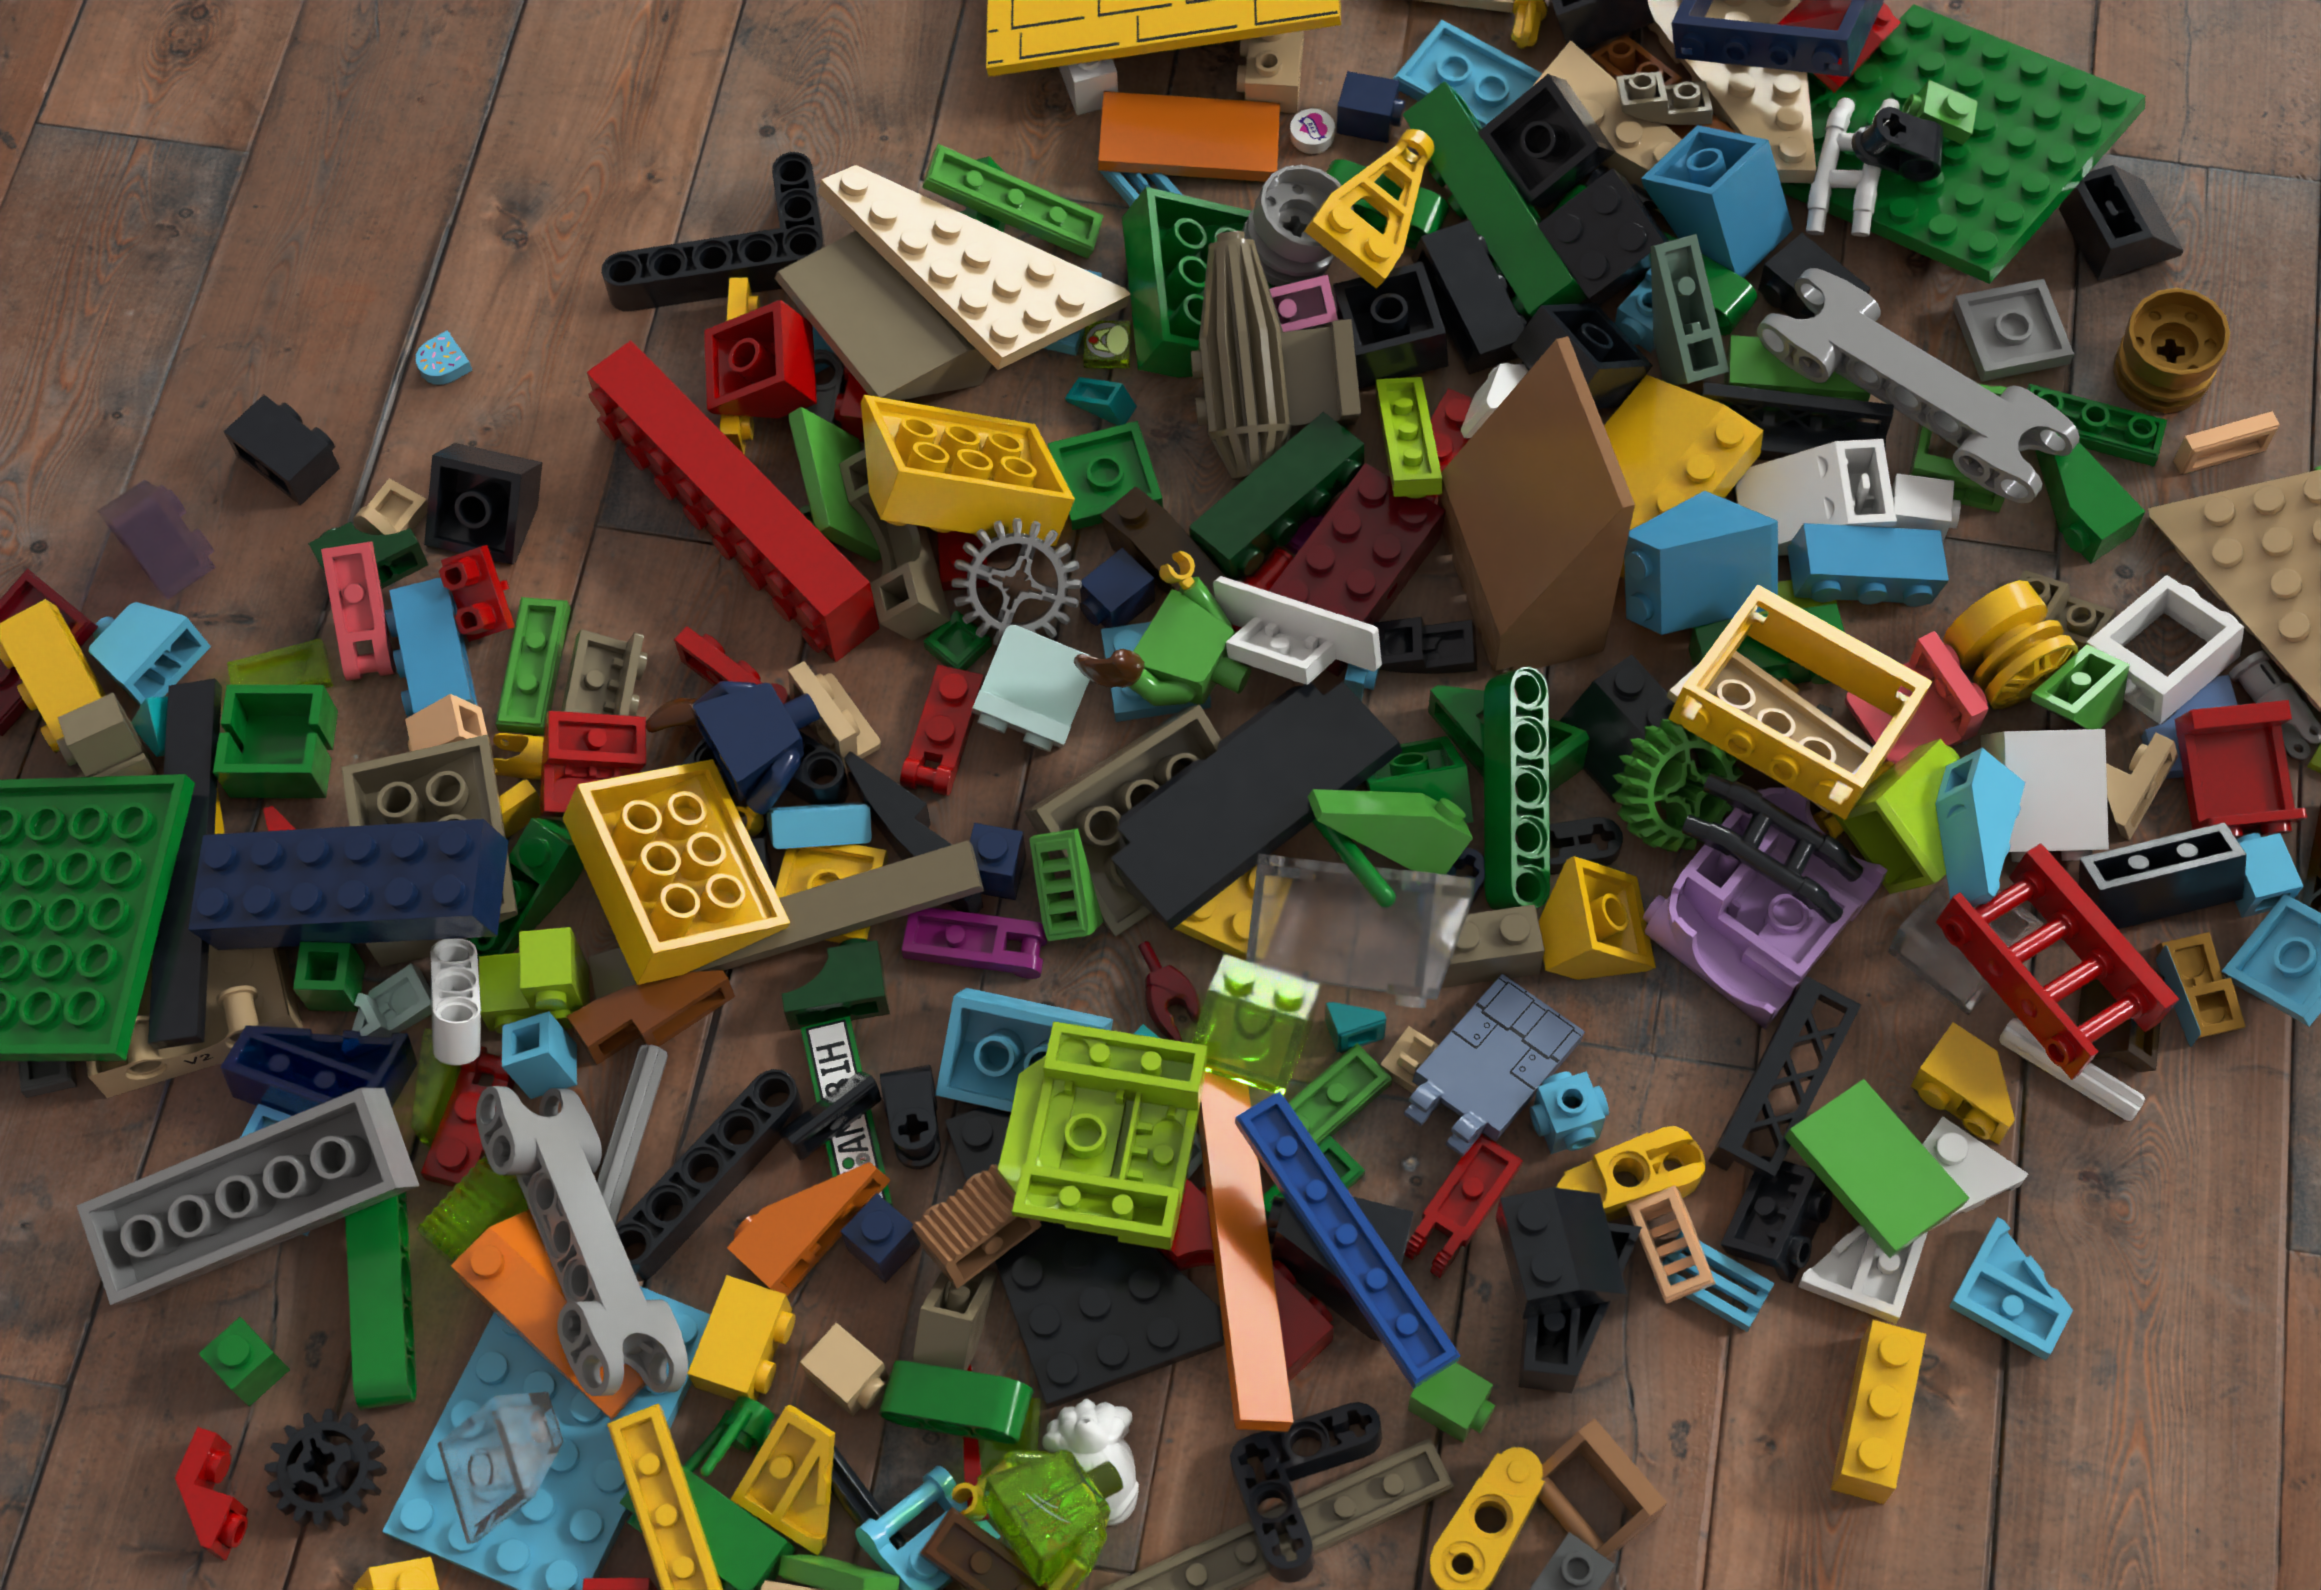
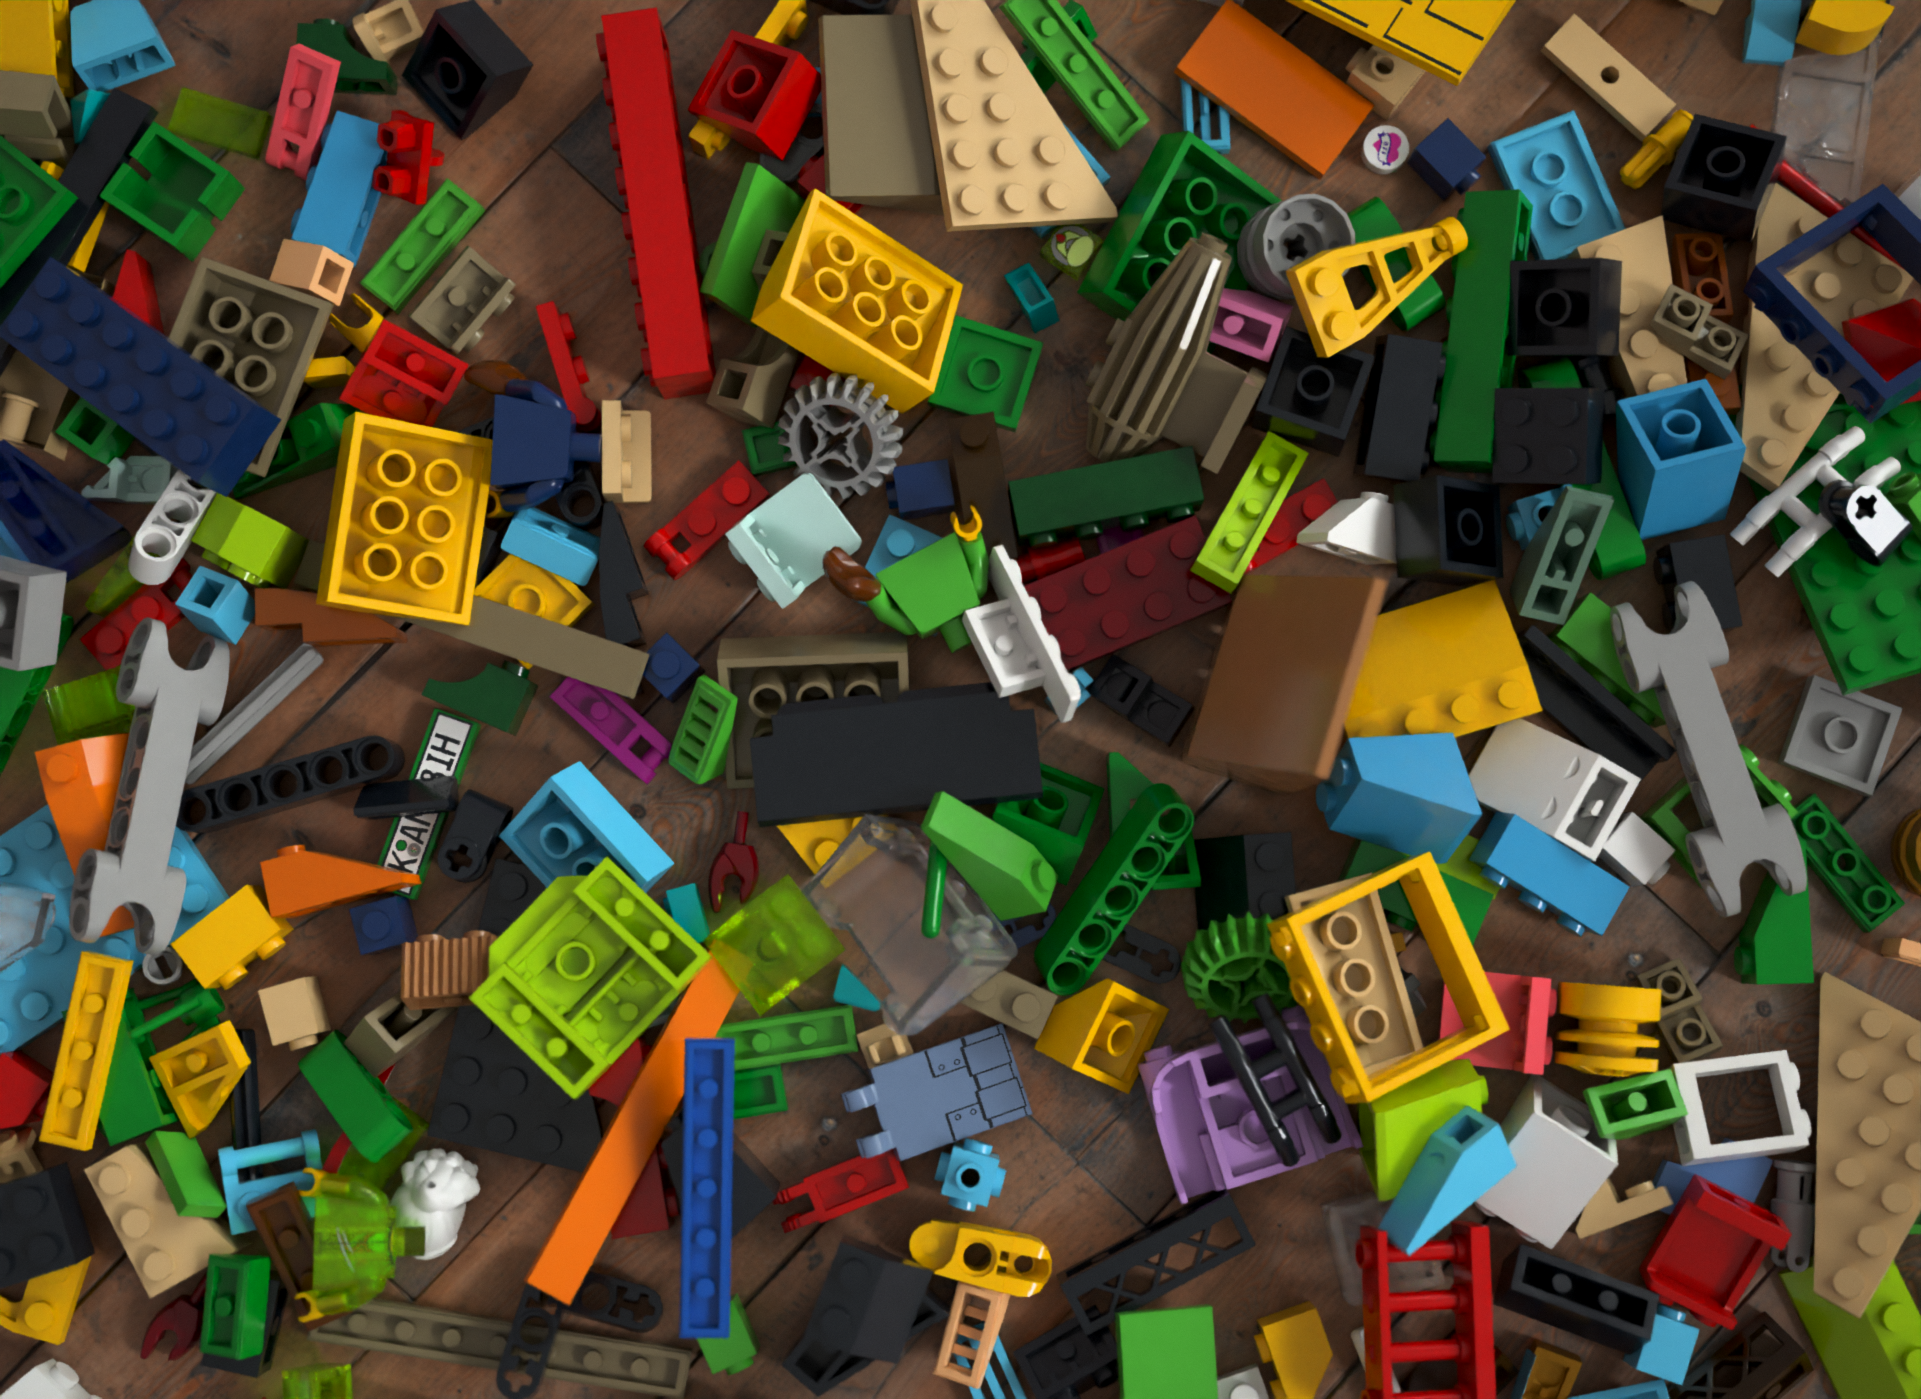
camera: 30 degrees right, 20 degrees up
(693, 1403) = (153, 972): none -> light grey hinge

